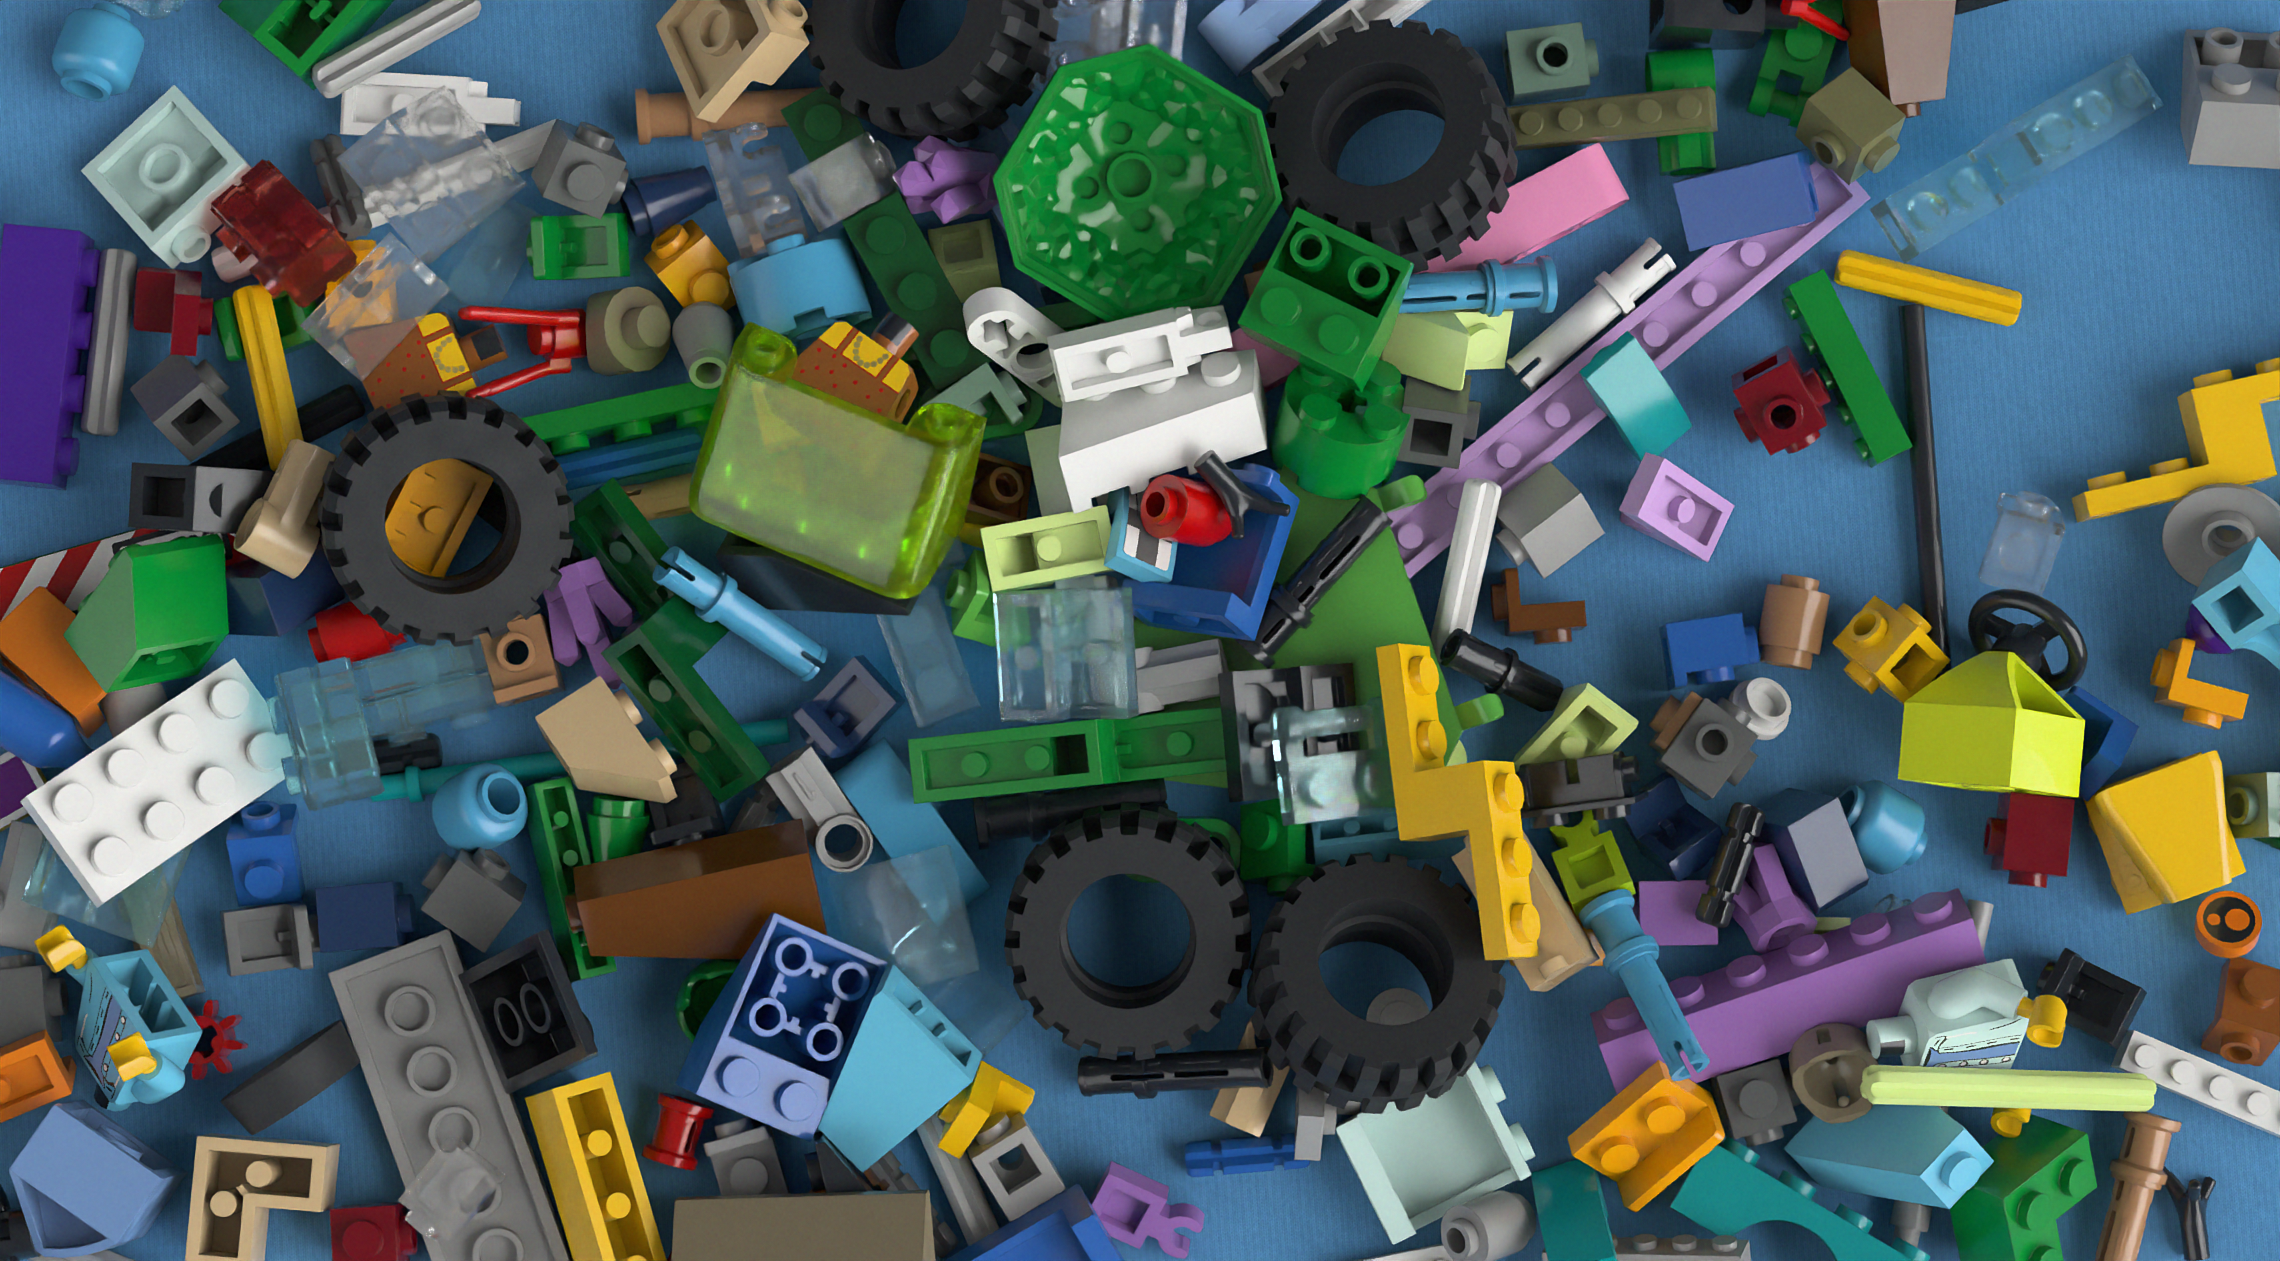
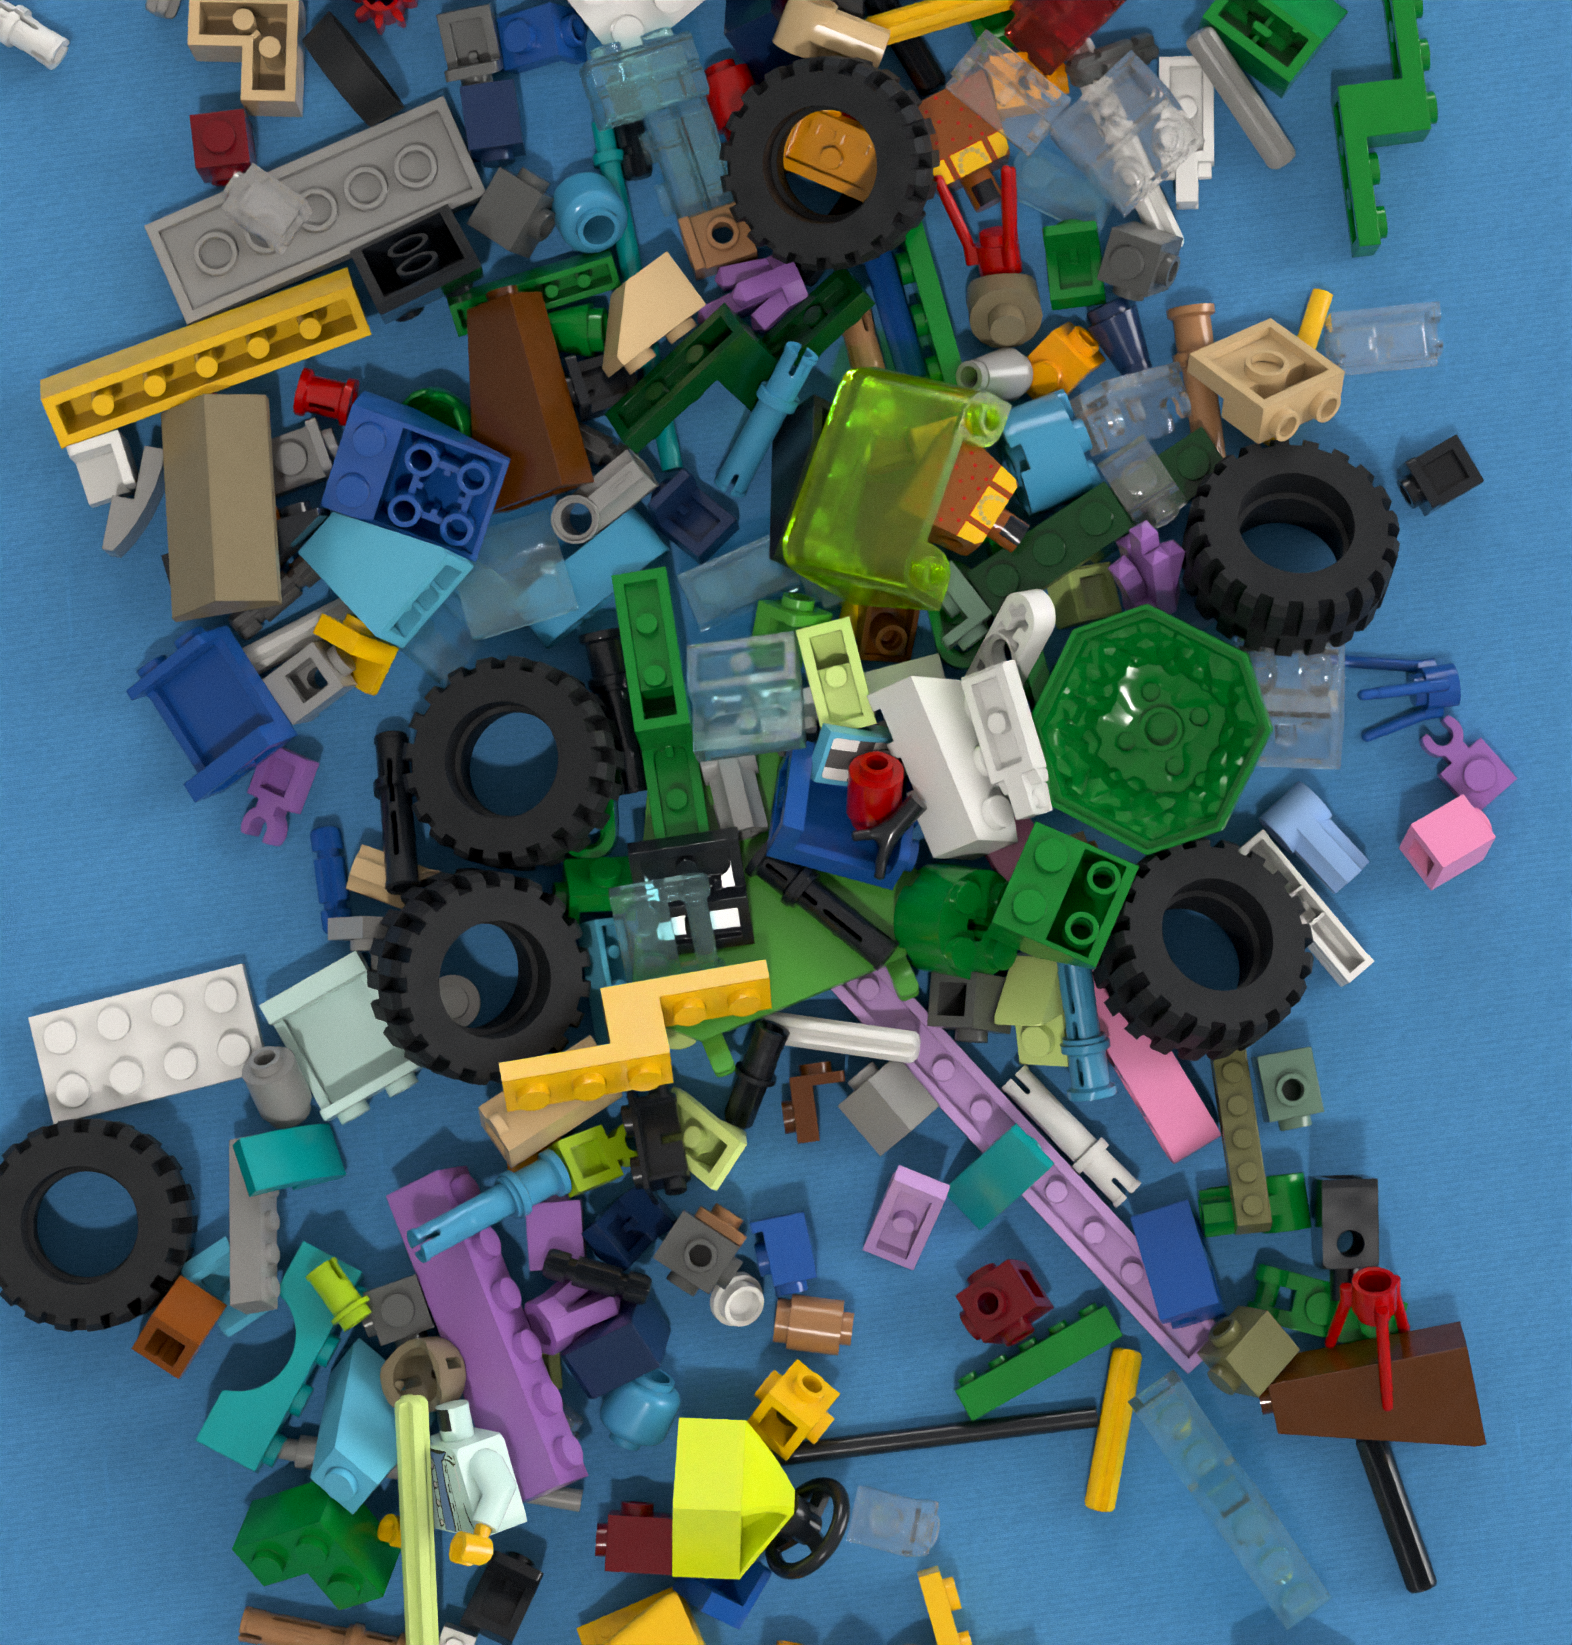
camera: 85 degrees right, 0 degrees up
(1649, 1134) = (363, 1220): light orange bracket -> none
(1737, 1166) = (339, 1294): none -> lime pin

